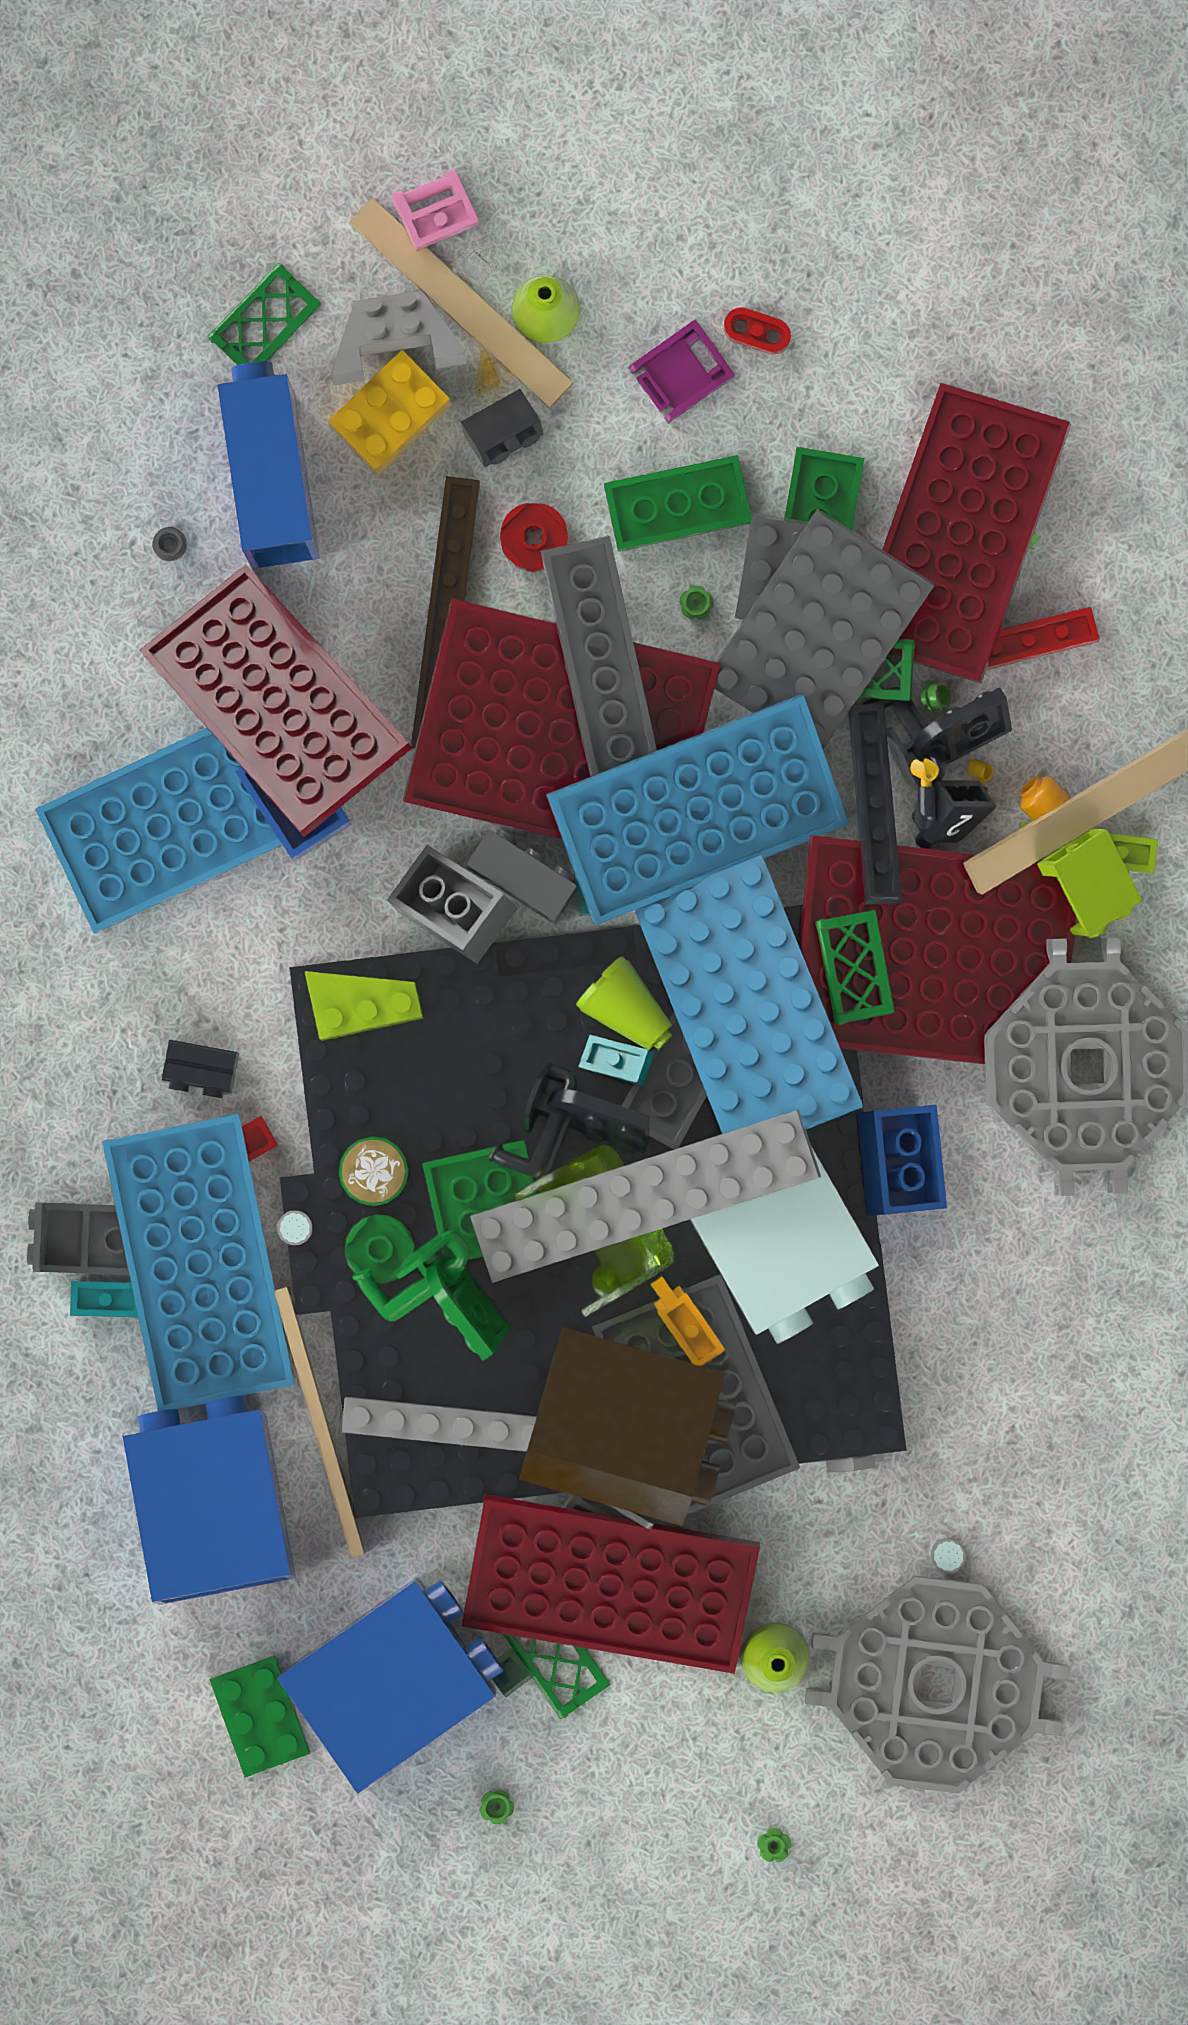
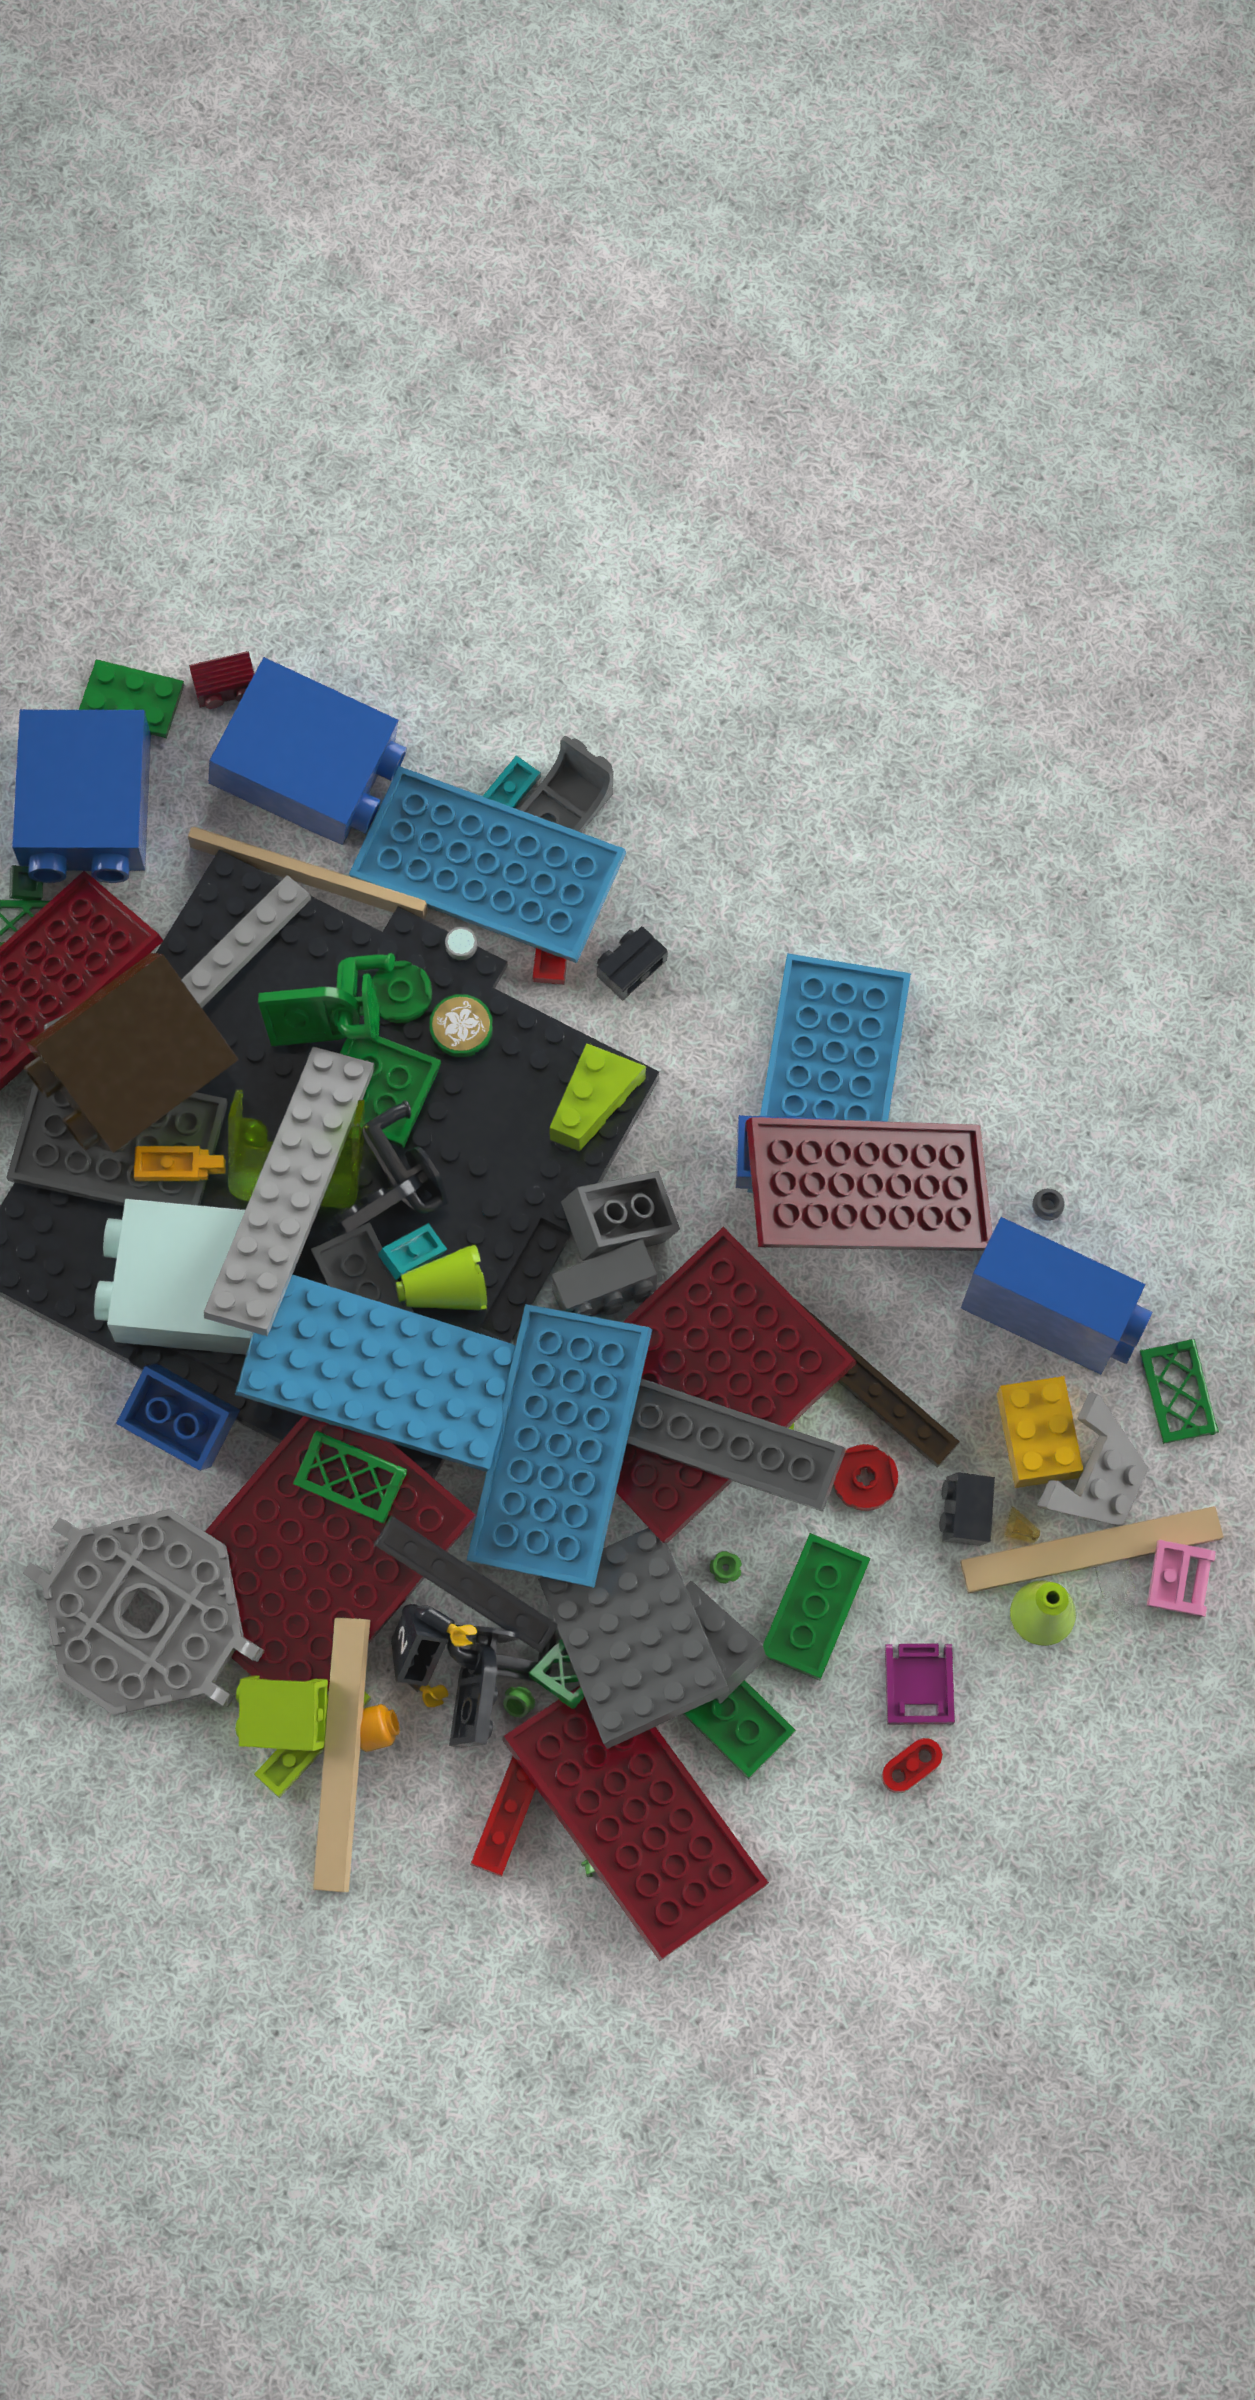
camera: 120 degrees right, 15 degrees down
(183, 1640) = (222, 679): none -> dark red brick

